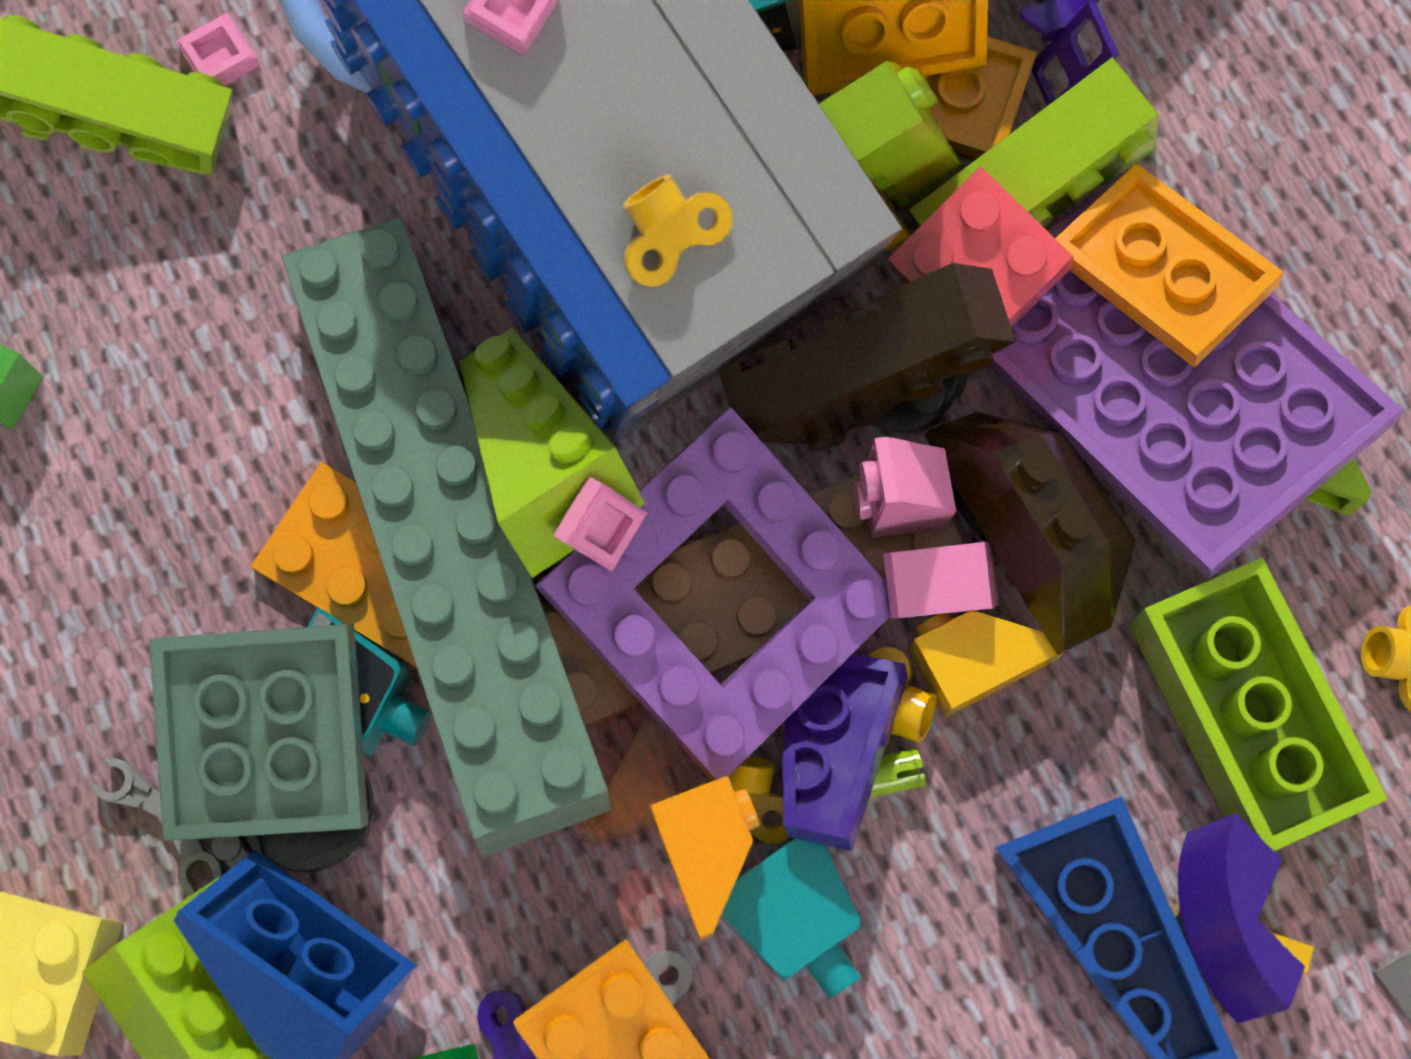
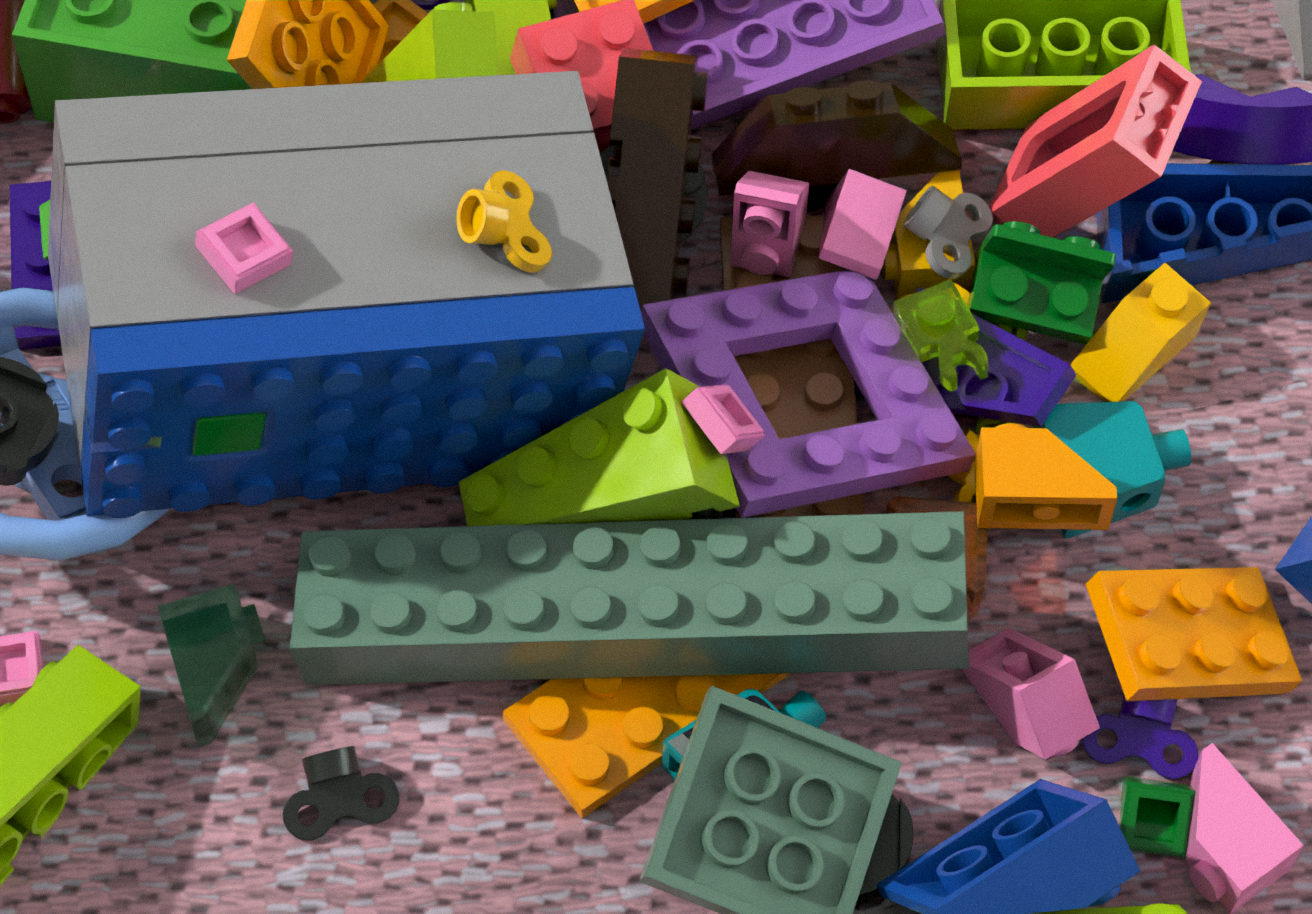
camera: 70 degrees left, 15 degrees down
(197, 359) = (337, 792): none -> pearl dark grey piece
(274, 201) = (212, 654): none -> clear green slope
(511, 923) = (1032, 692): none -> bright pink slope
(850, 697) = (942, 326): none -> clear neon green plate
(953, 901) = (1141, 335): none -> yellow slope
(954, 778) = (1039, 281): none -> green bracket
(974, 665) = (948, 228): none -> light grey piece
(1097, 810) = (1097, 145): none -> coral piece

